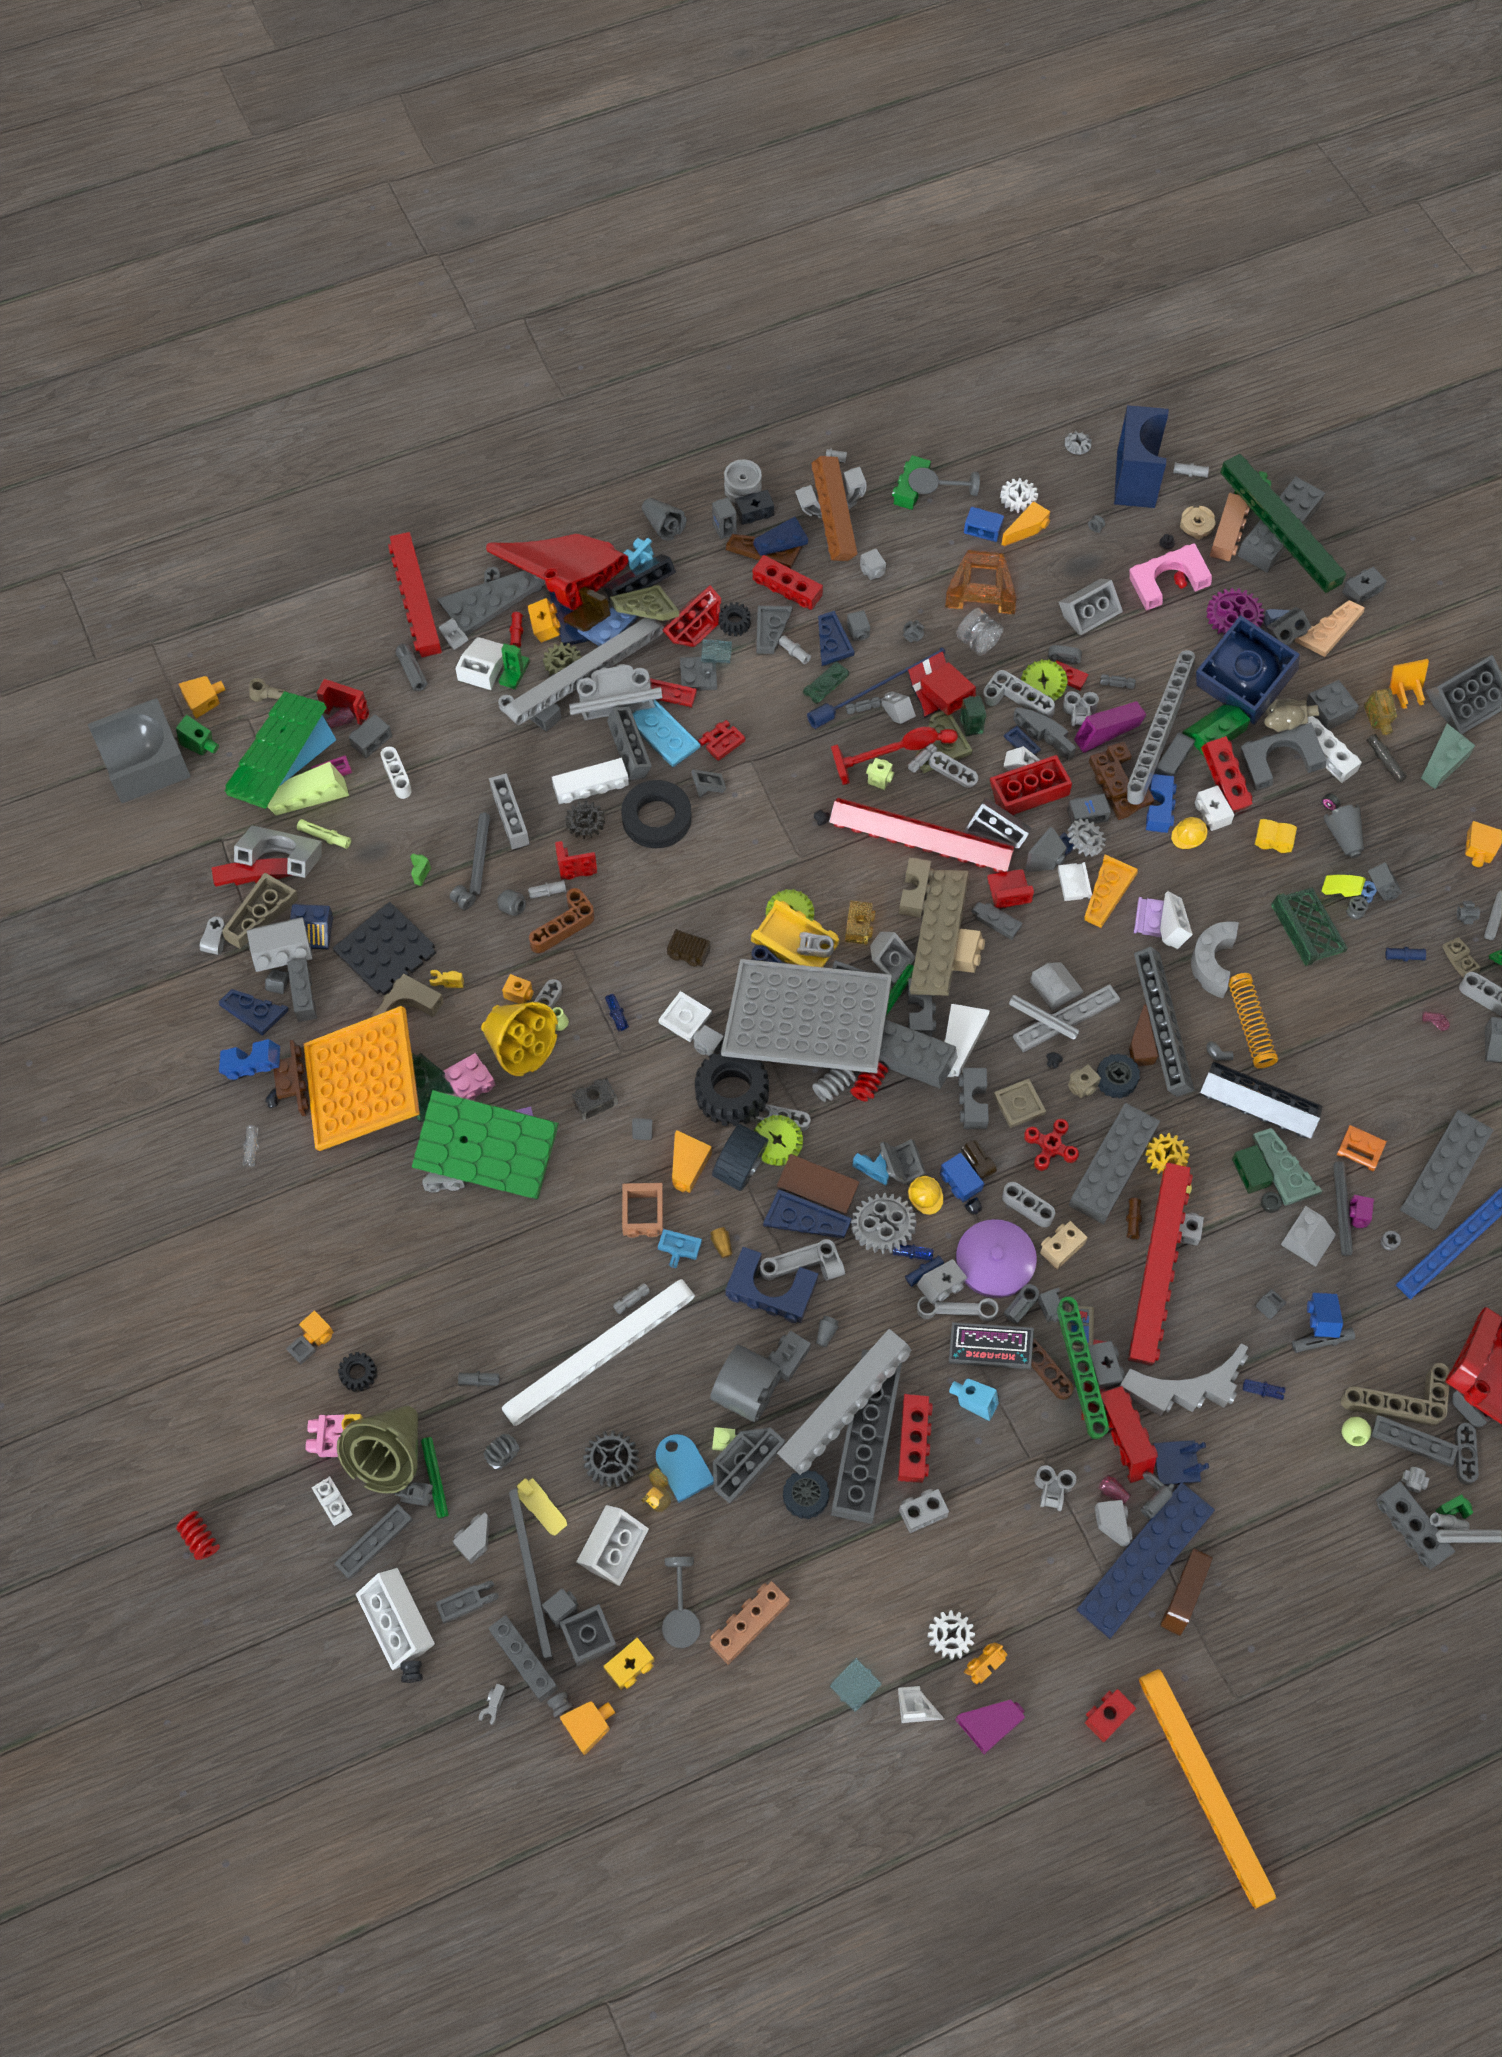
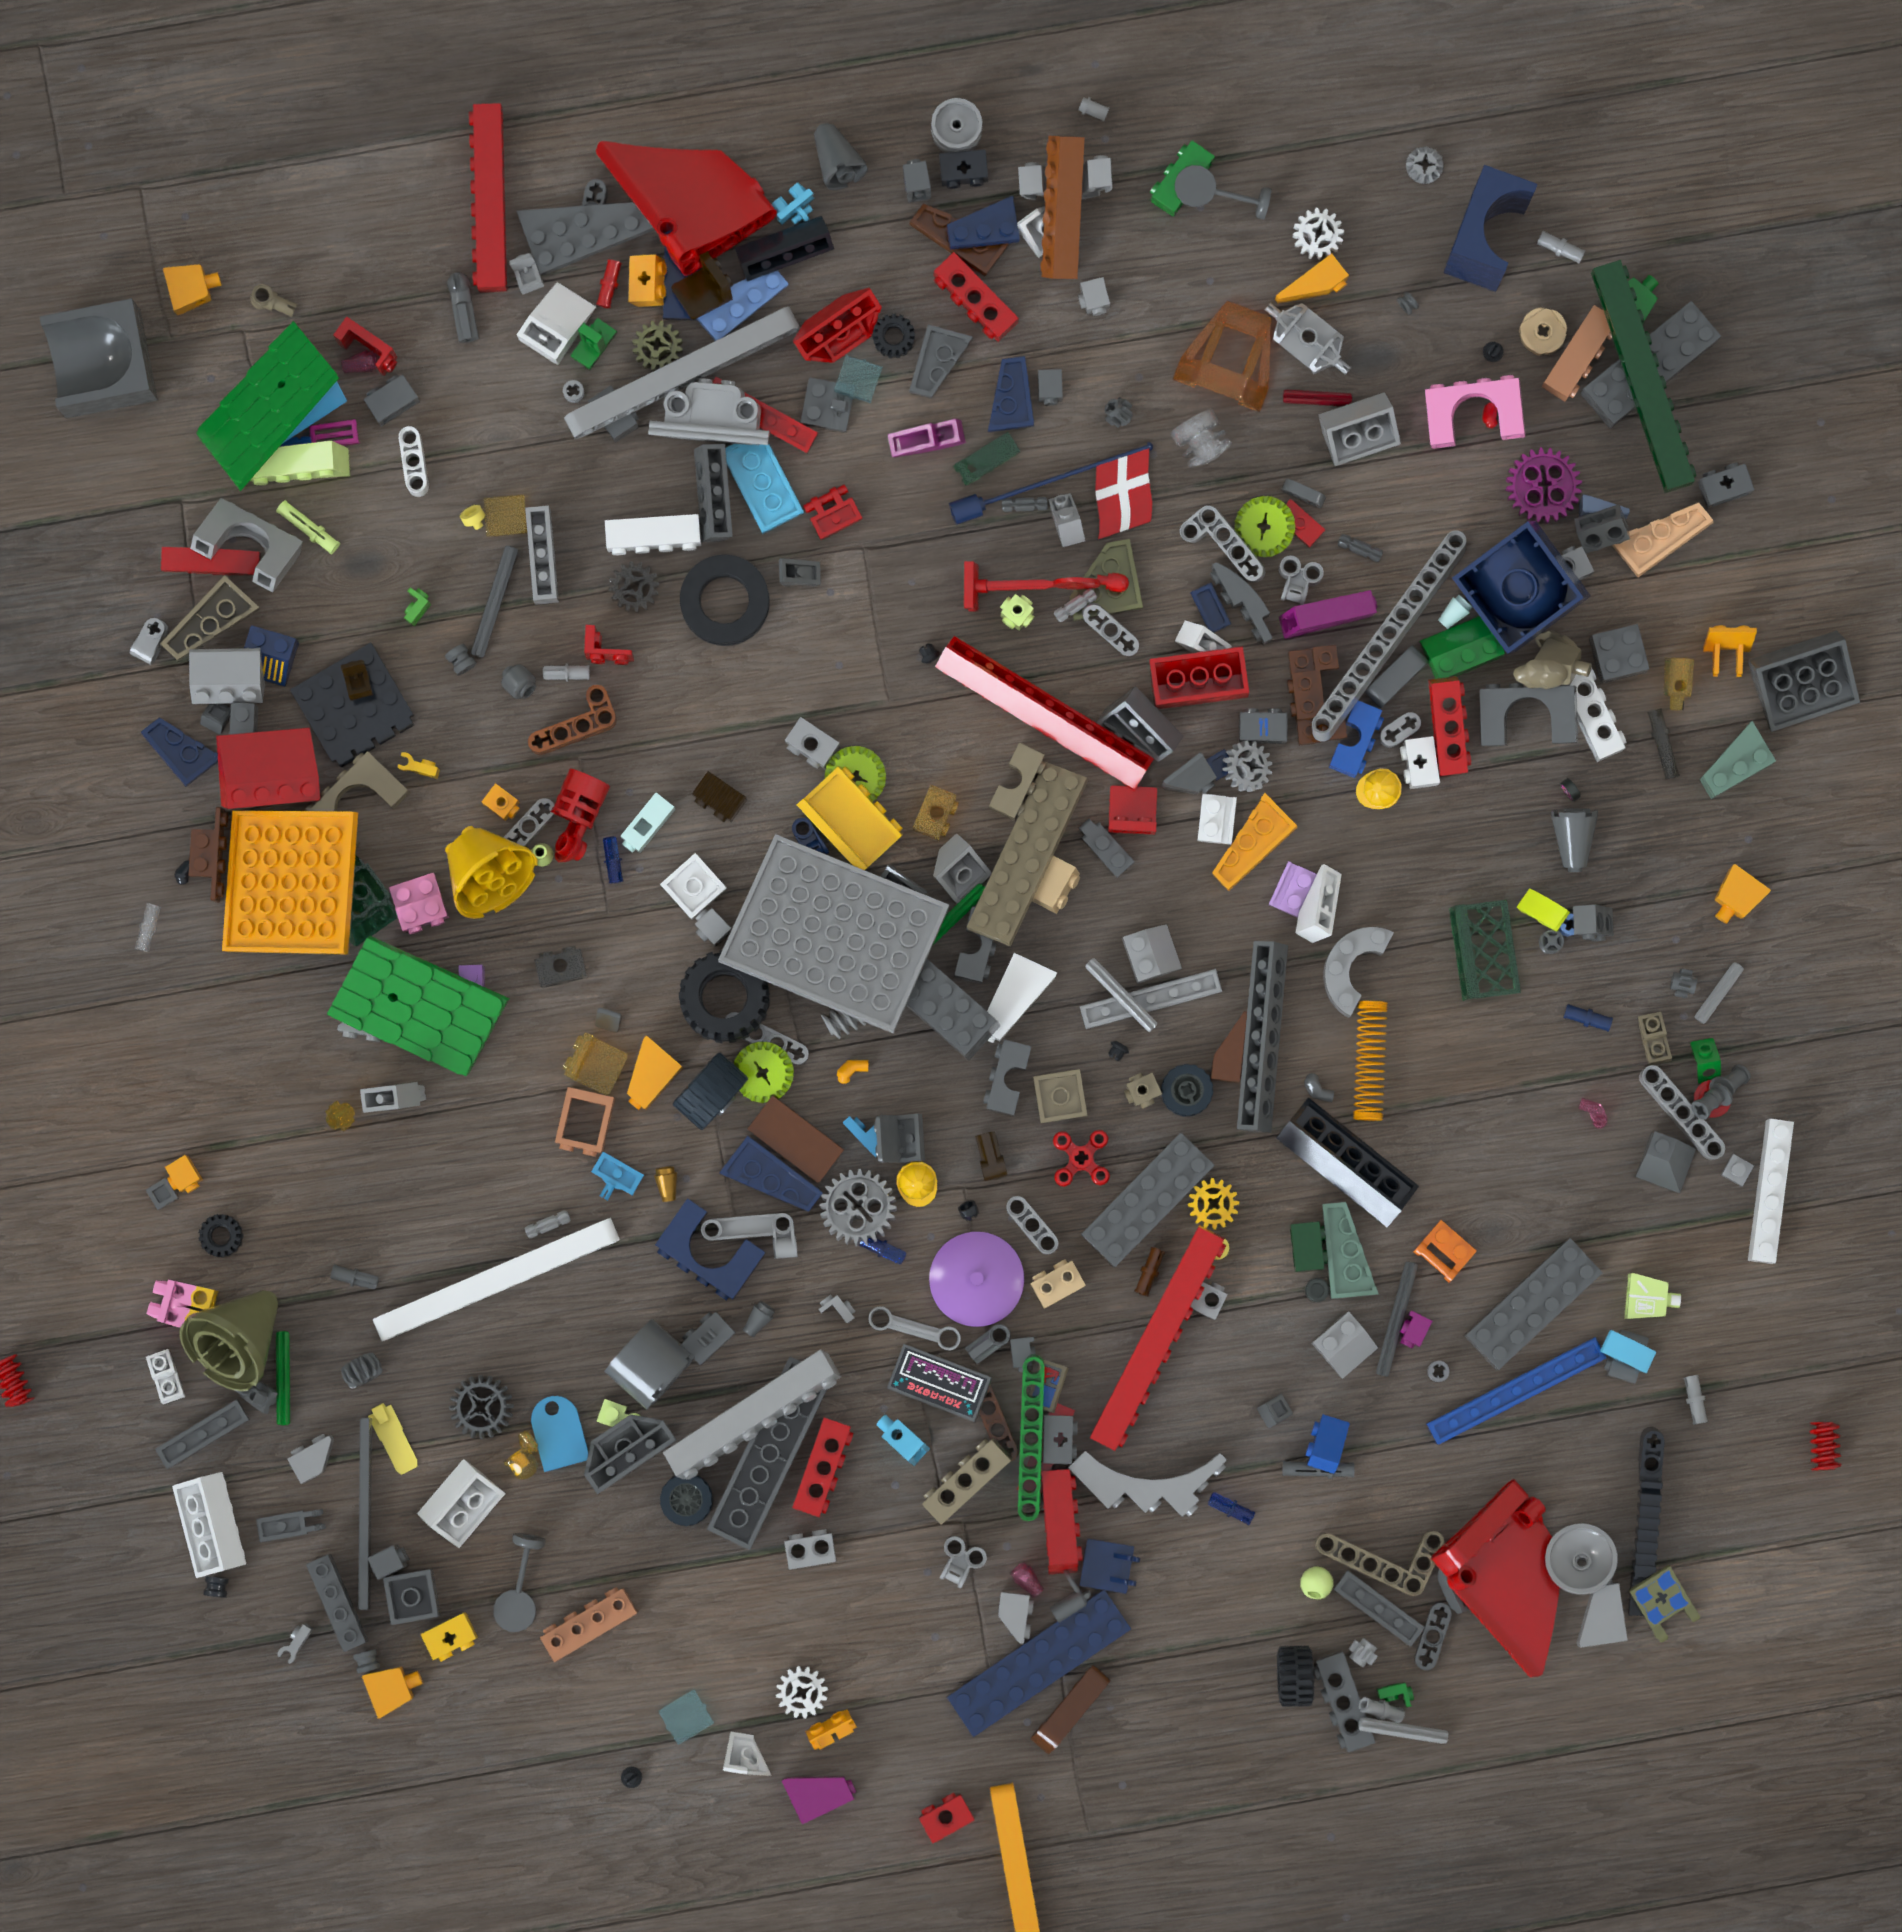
camera: 15 degrees right, 20 degrees up
(195, 736) = (165, 345): green torso -> none
(237, 1063) = (181, 824): blue arch -> none
(325, 1001) = (267, 768): none -> red slope
(383, 923) = (356, 679): none -> dark brown bracket
(439, 1252) = (340, 1115): none -> clear yellow gear
(449, 799) = (473, 516): none -> light yellow tile
(474, 796) = (505, 515): none -> clear yellow piece
(478, 1224) = (392, 1097): none -> light grey hinge
(579, 978) = (578, 813): none -> red cylinder
(637, 979) = (647, 823): none -> light aqua brick
(639, 1163) = (595, 1064): none -> clear yellow bracket
(647, 603) = (782, 295): olive plate -> none
(743, 888) = (805, 731): none -> light grey brick
(778, 677) = (927, 438): none -> magenta slope
(794, 649) = (958, 400): light grey pin -> none
(813, 945) = (869, 835): light grey piece -> none
(815, 532) = (1032, 230): none -> white slope
(821, 1751) = (631, 1777): none -> black piece
(846, 1120) = (849, 1067): none -> light orange arm
(867, 1083) = (882, 1036): red piece -> none
(893, 1305) = (844, 1309): none -> light grey bracket
(915, 1276) = (890, 1275): dark blue pin -> none
(942, 1281) = (891, 1297): light grey brick -> none
(947, 688) = (1136, 512): red brick -> none
(961, 1177) = (964, 1173): blue brick -> none
(973, 716) = (1156, 560): clear green brick -> none
(983, 524) = (1258, 267): blue brick -> none
(1026, 1448) = (997, 1458): none -> dark tan brick
(1045, 566) = (1315, 355): none -> light grey plate
(1051, 595) = (1317, 397): none -> dark red axle
(1187, 789) = (1397, 724): none -> light grey beam
(1202, 705) = (1455, 611): none -> light aqua cone
(1275, 835) = (1484, 820): yellow brick -> none
(1369, 1510) = (1295, 1676): none -> black tyre

